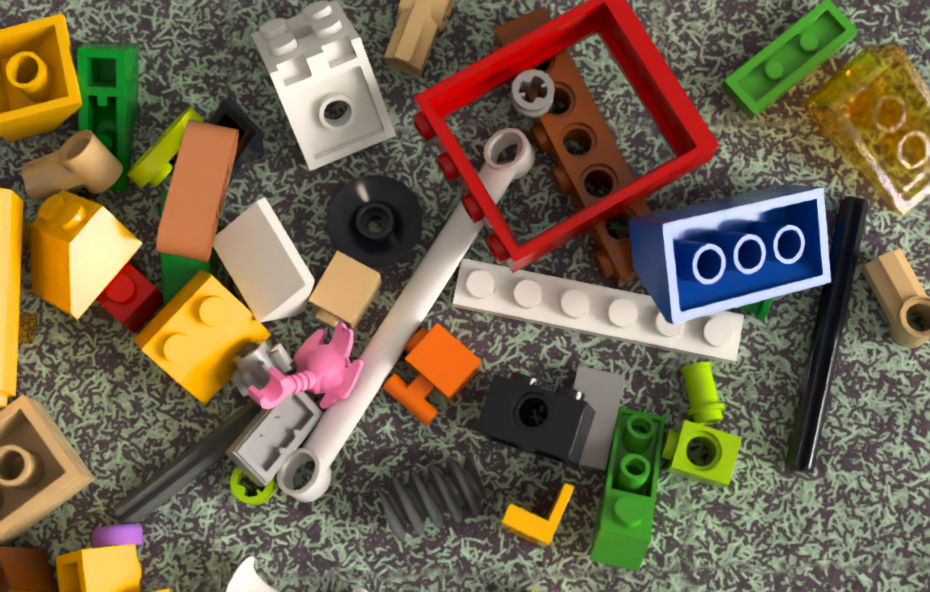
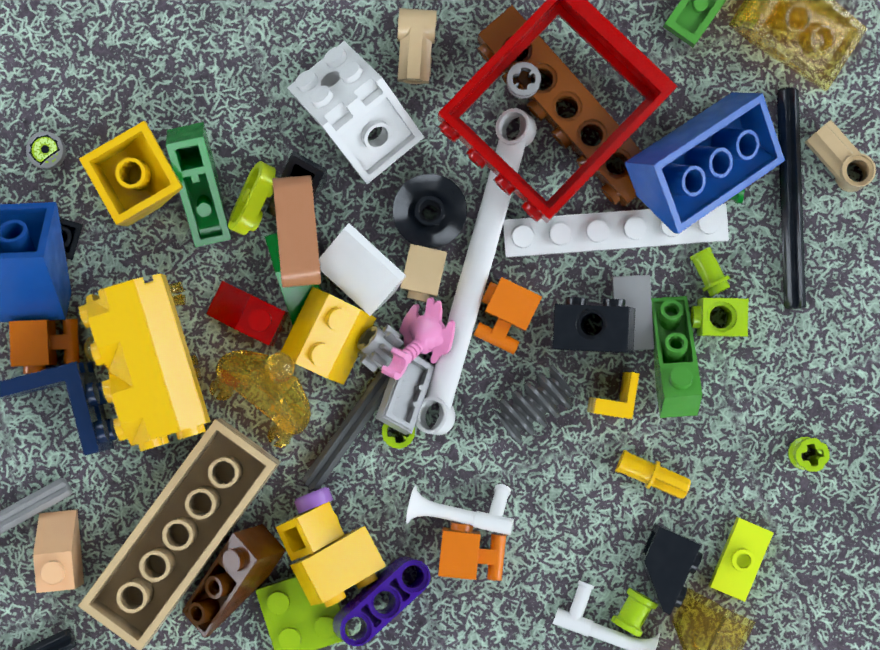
camera: 20 degrees left, 10 degrees up
(76, 251) = (216, 302): yellow slope -> none
(78, 164) = (193, 232): tan piece -> none
(104, 375) = (268, 386): none -> clear yellow connector

